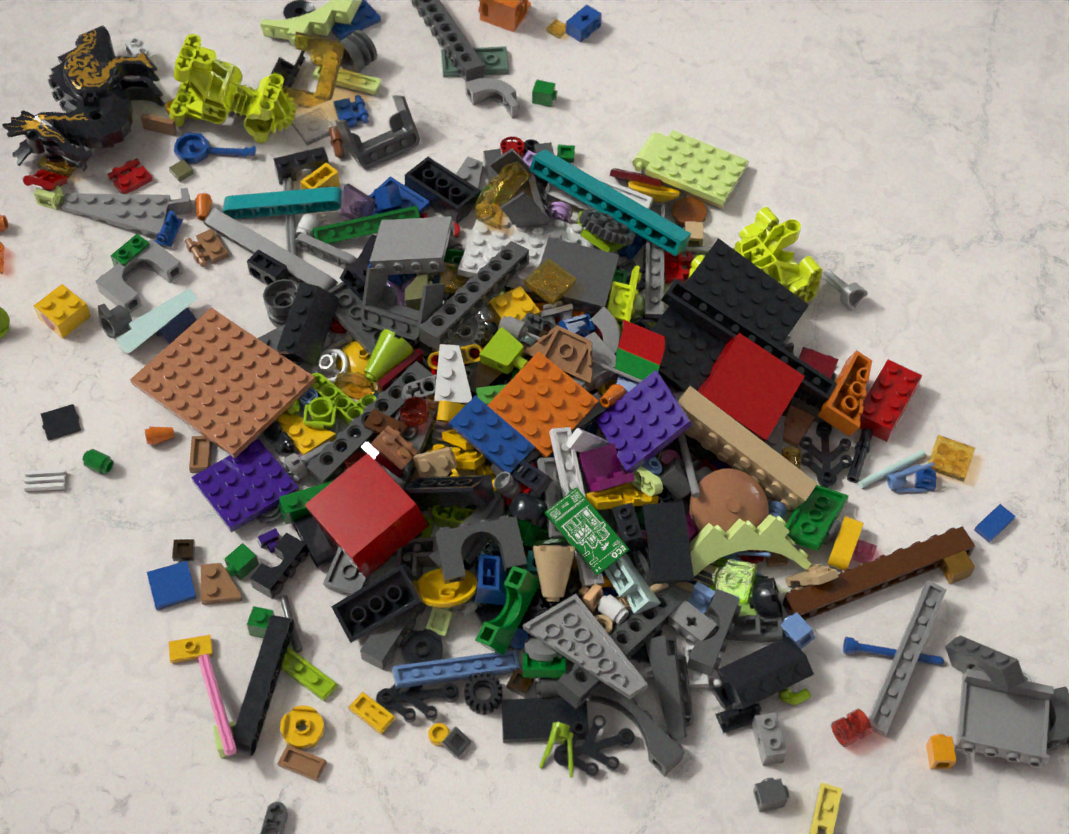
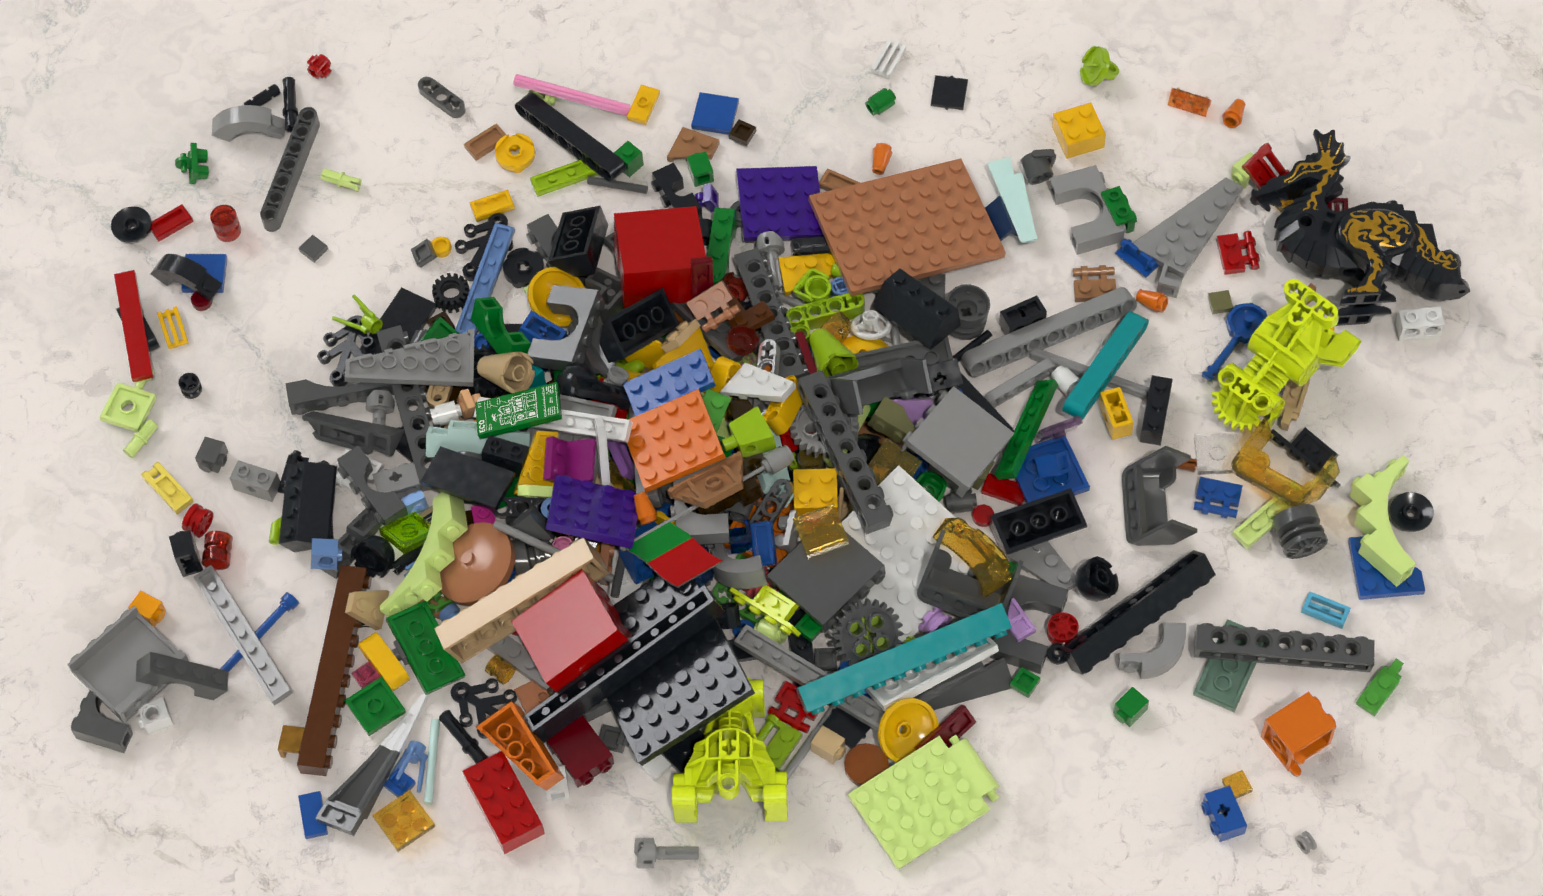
camera: 125 degrees right, 5 degrees up
(401, 40) = (1324, 613): none -> medium azure tile
(465, 142) = (1096, 579): none -> black cylinder
(472, 112) = (1138, 612): none -> black brick
(838, 761) = (197, 520): none -> red wheel
(876, 745) = (186, 553): none -> black brick
(883, 528) = (375, 706): none -> green plate
(963, 495) = (358, 794): none -> dark grey plate

